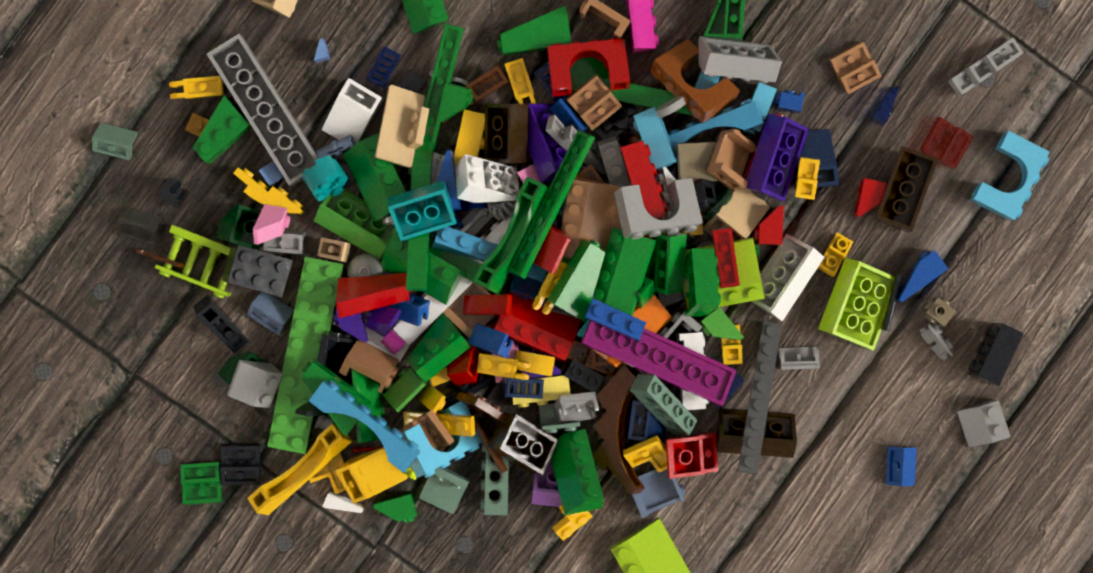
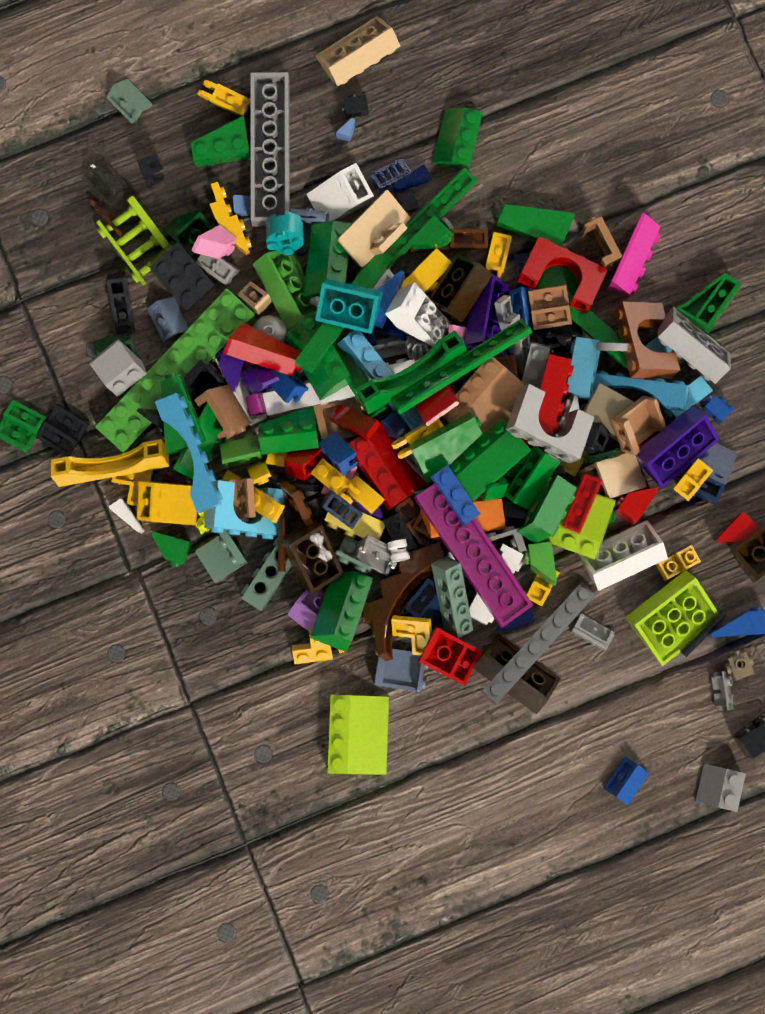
camera: 35 degrees right, 5 degrees down
(196, 124) = (204, 127): pearl gold plate -> none
(315, 25) = (355, 106): none -> black brick
(408, 57) = (415, 178): none -> clear blue slope
(597, 396) = (398, 550): none -> white wheel

